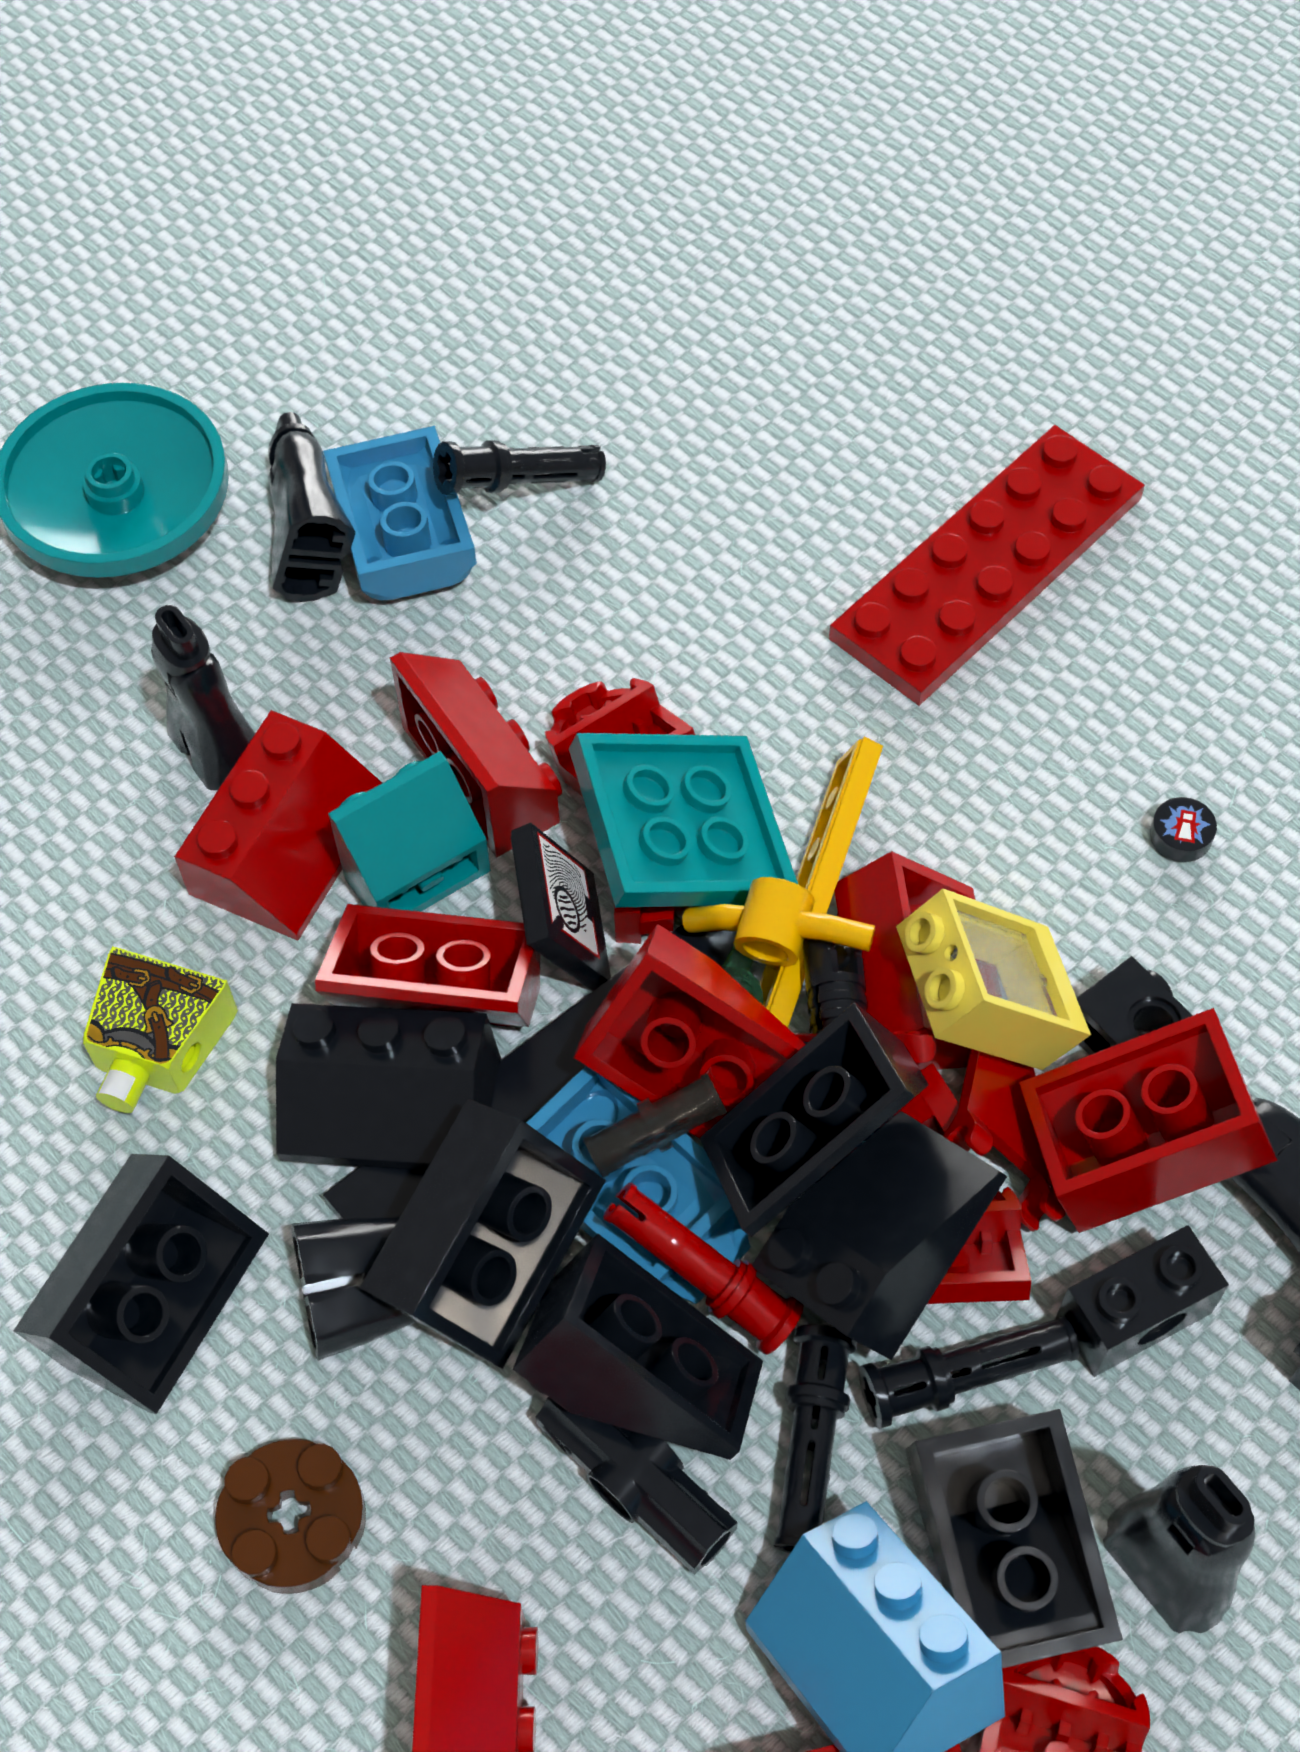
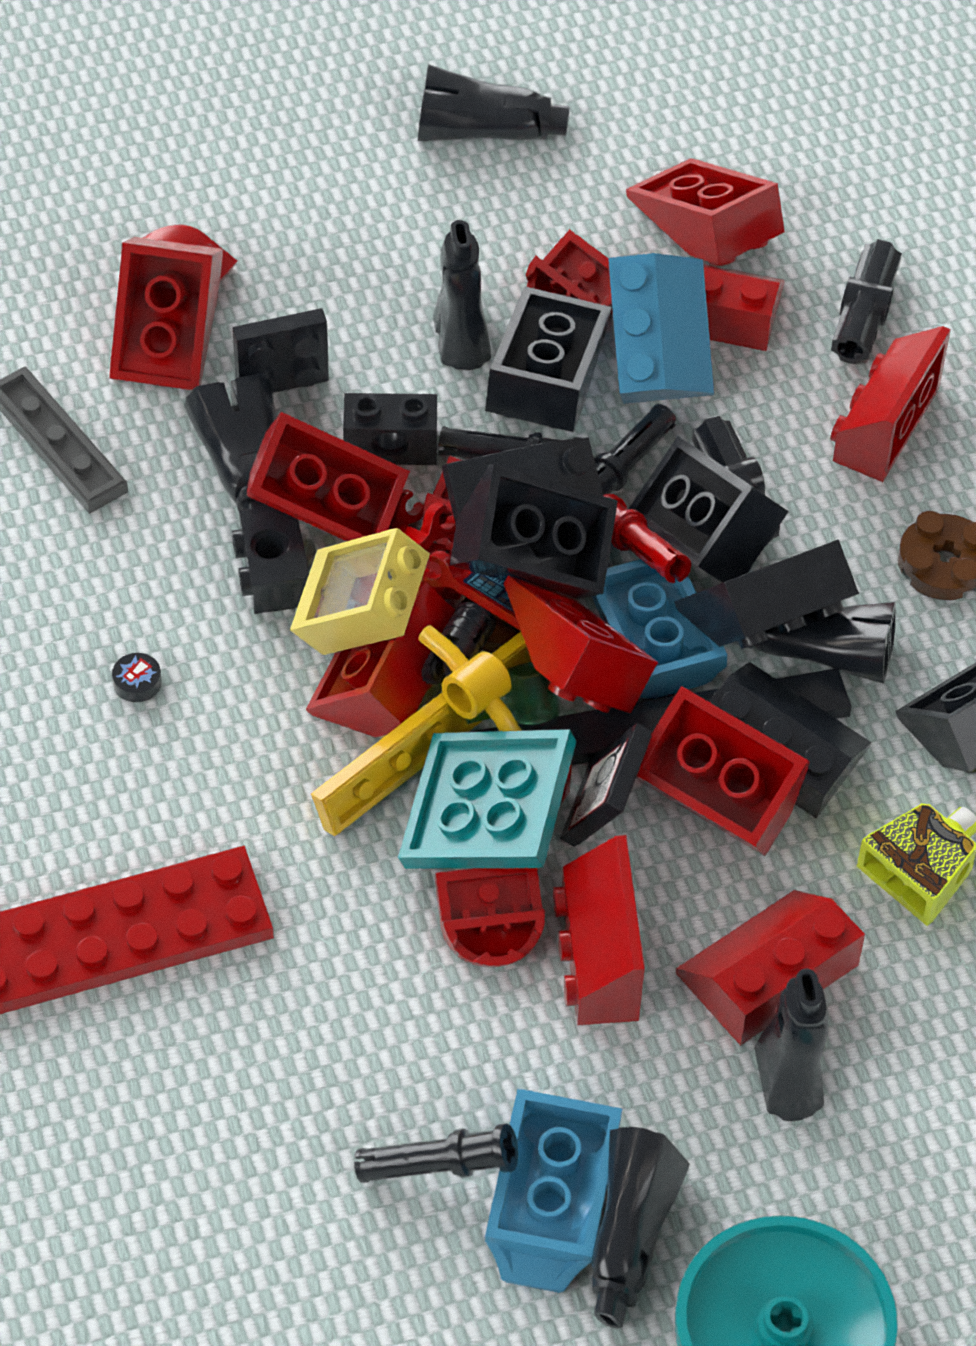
camera: 155 degrees left, 5 degrees down
(410, 838) = (688, 889): teal slope -> none
(654, 1125) = (628, 604): clear smoke pin -> none

